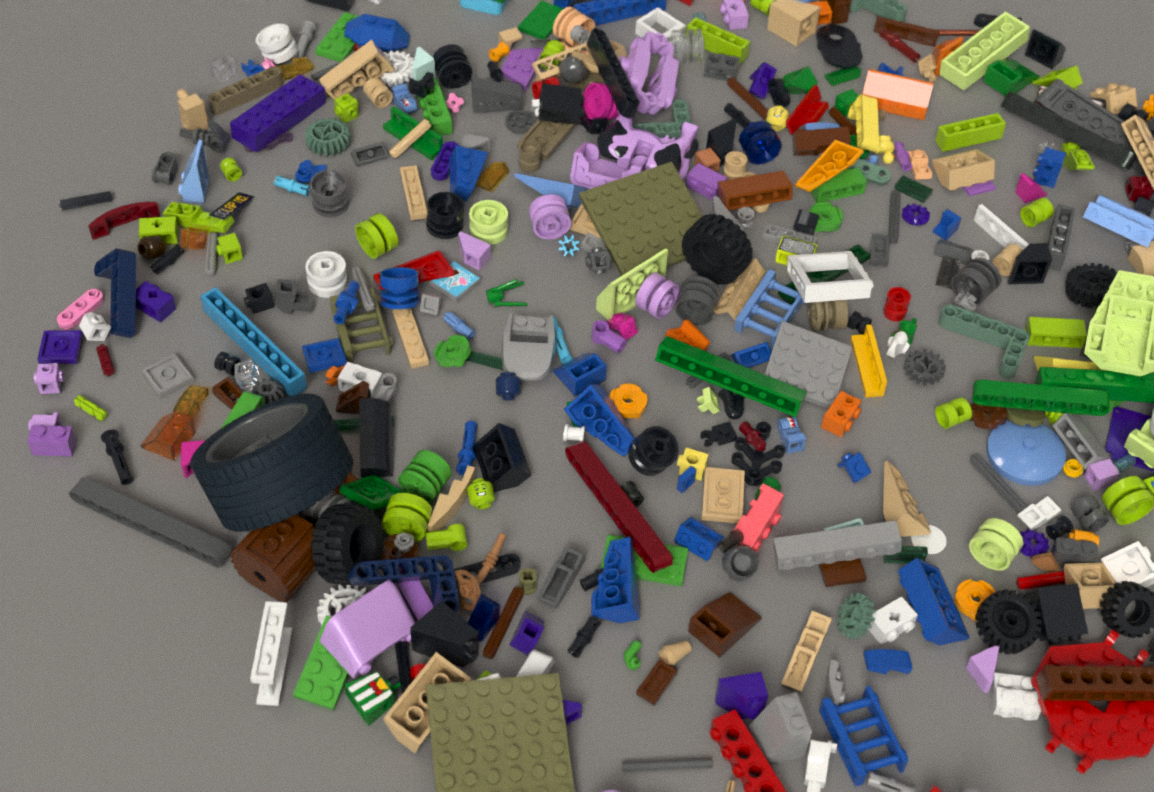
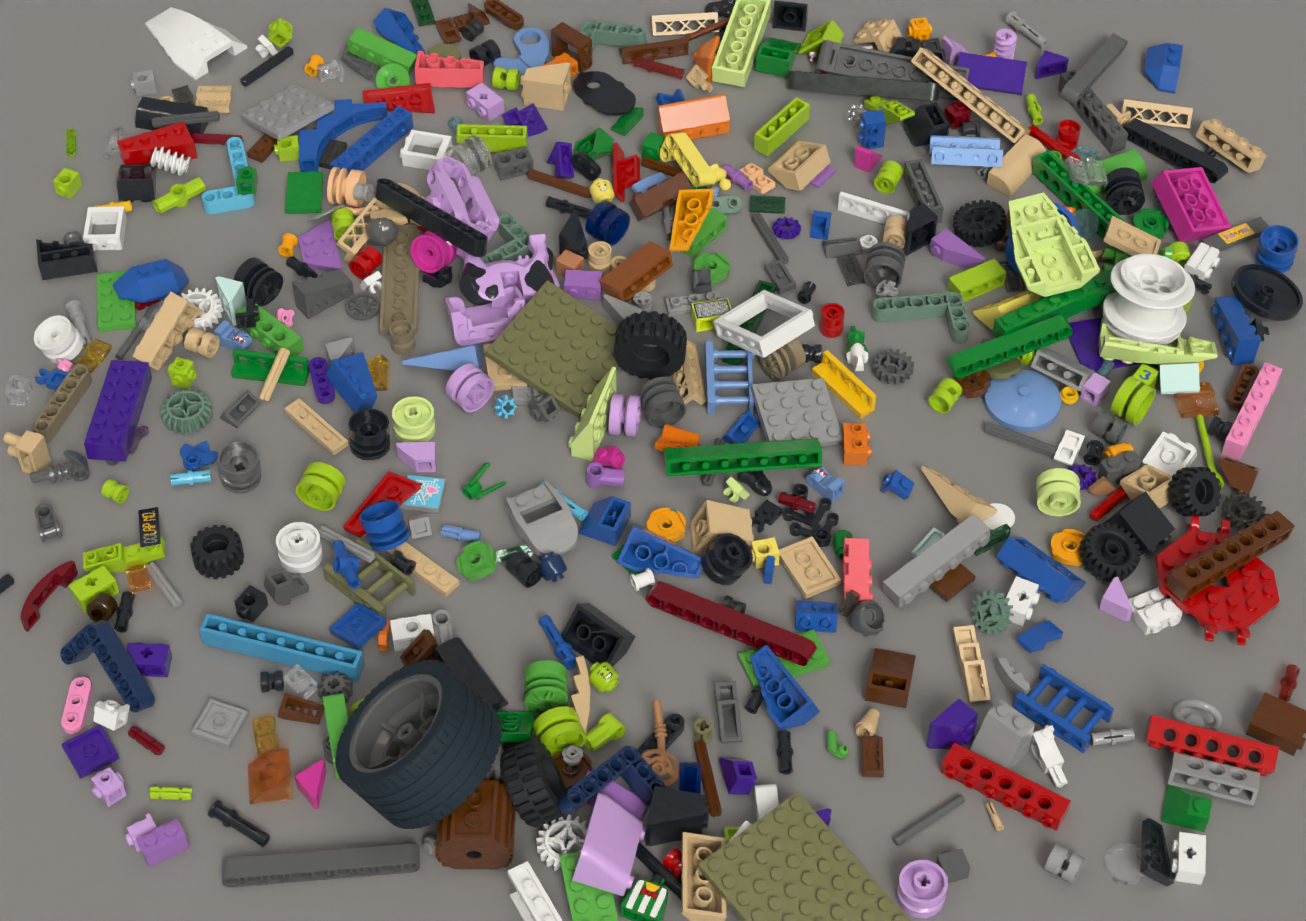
camera: 30 degrees left, 0 degrees up
(195, 177) = (88, 514): light blue slope -> none
(229, 248) = (180, 570): lime brick -> none
(265, 247) = (217, 564): none -> black tyre
(393, 324) = (402, 563): none -> black bush
(484, 376) = (524, 569): none -> black wheel
(510, 36) = (288, 225): tan panel -> none
(560, 104) = (396, 271): black brick -> none
(677, 419) = (716, 519): none -> tan slope
(760, 41) = (526, 117): none -> dark purple slope
(890, 274) = (805, 294): none -> black pin
(948, 17) = (682, 18): none -> tan fence
(1052, 297) = (954, 250): none -> medium lavender slope
(1104, 181) = (926, 122): none -> black slope

